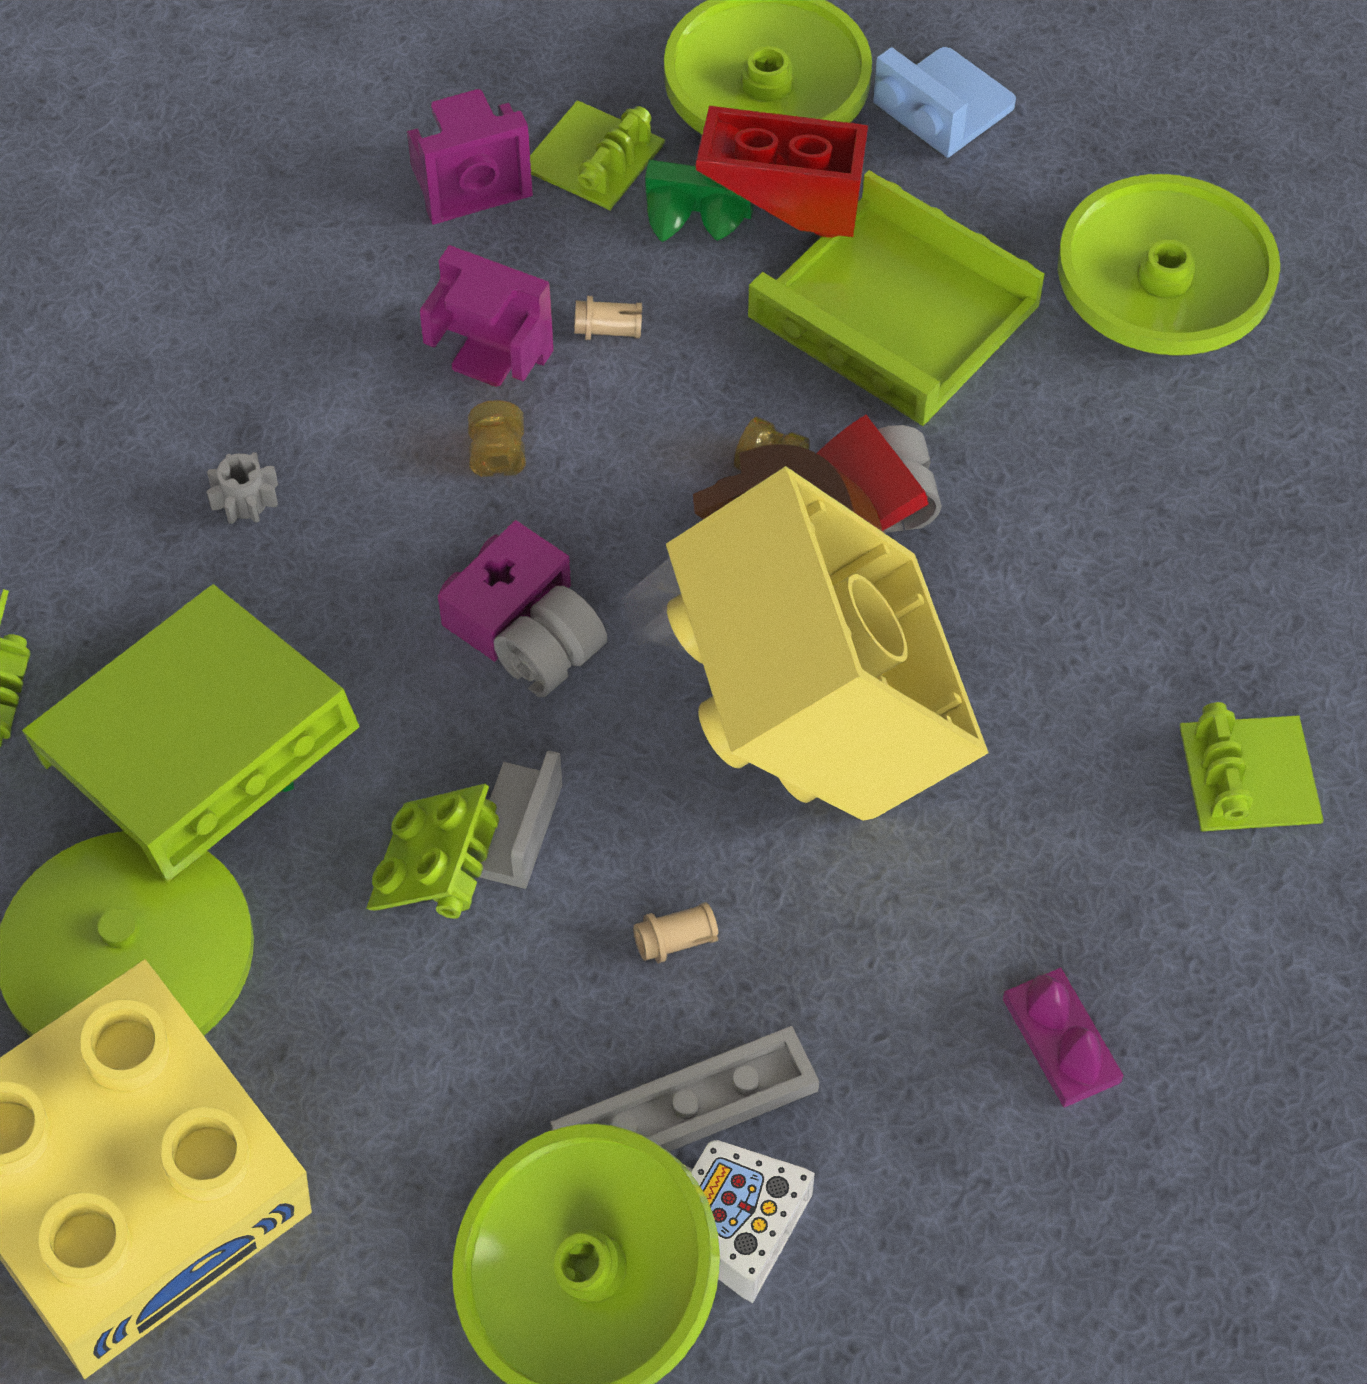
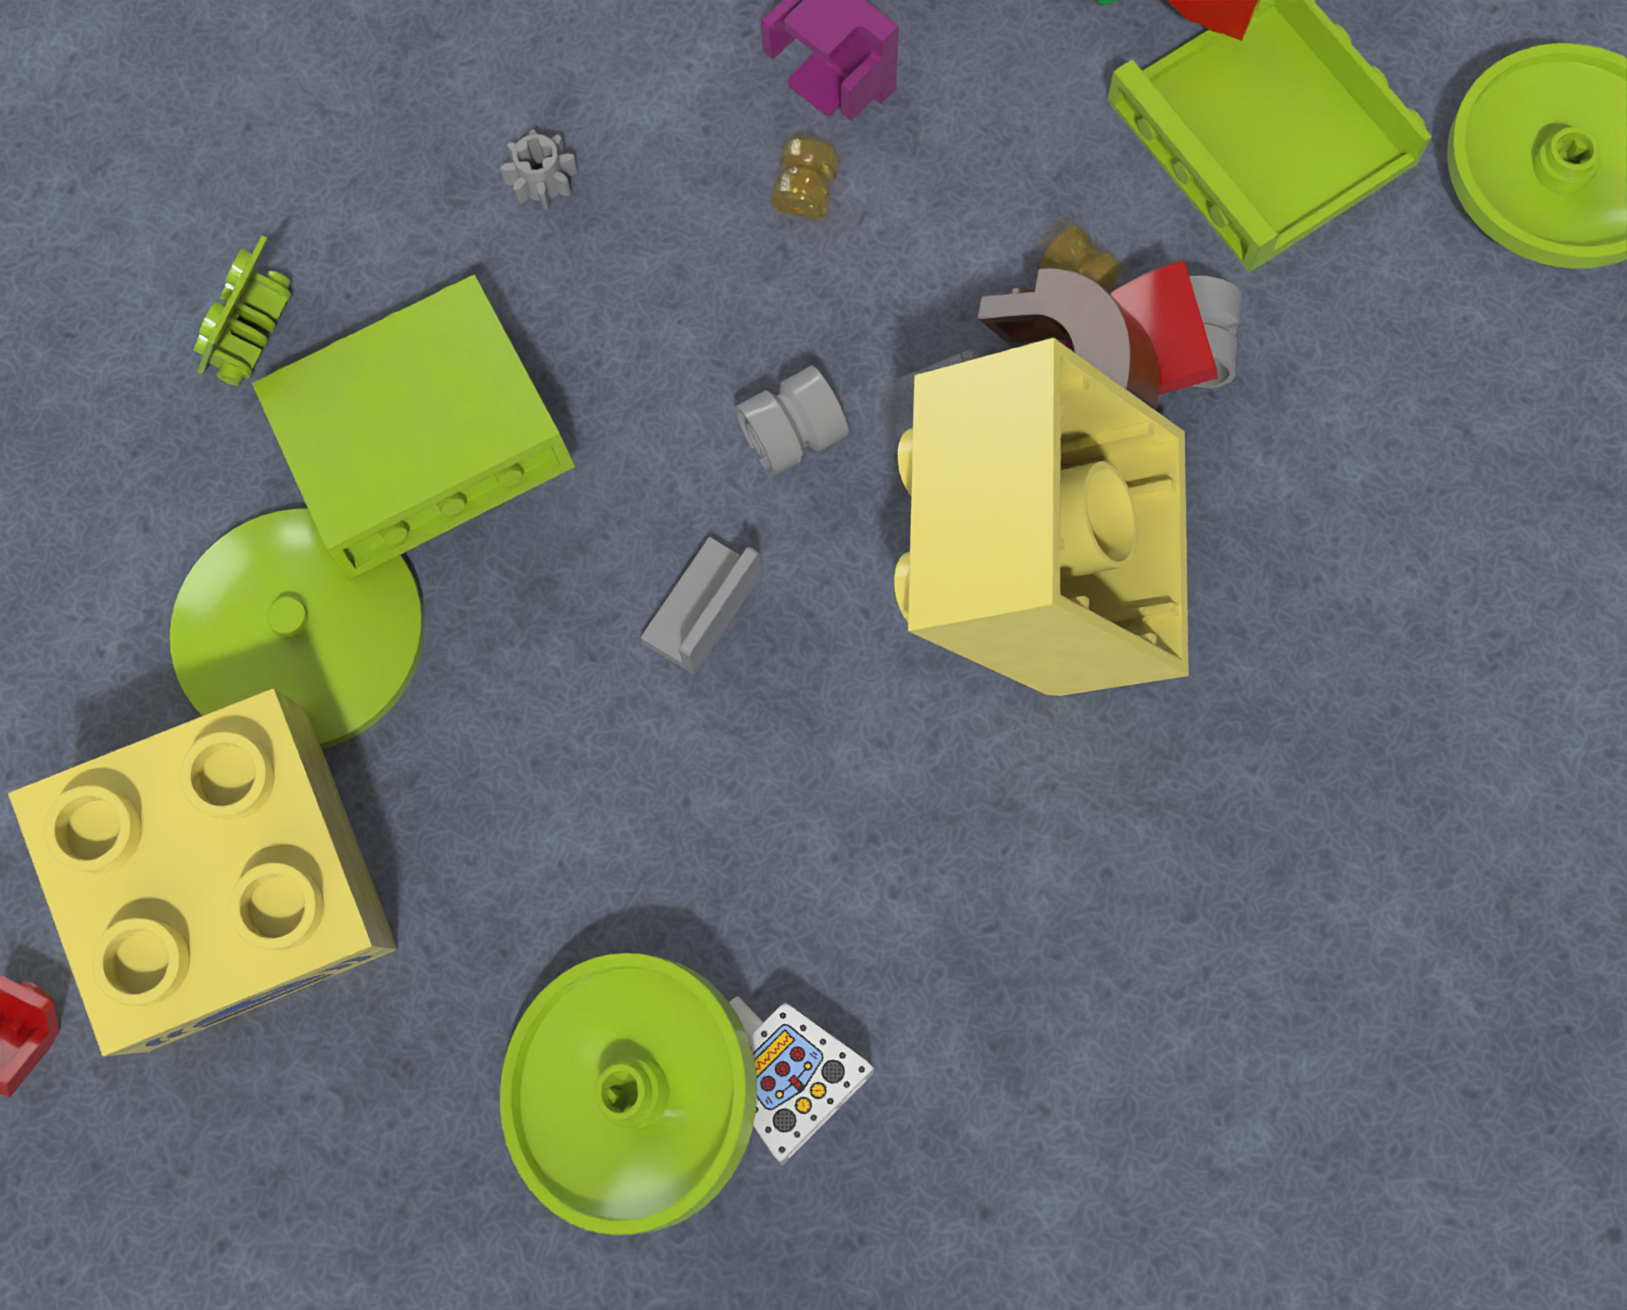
camera: 20 degrees right, 15 degrees up
(436, 851) = (606, 613): lime hinge -> none
(501, 586) = (773, 320): magenta brick -> none
(607, 318) = (959, 68): tan pin -> none
(675, 932) = (822, 765): tan pin -> none
(709, 1093) = (790, 947): light grey plate -> none
(1062, 1037) = (1171, 985): magenta tile -> none
(1249, 771) = (1460, 754): lime hinge -> none

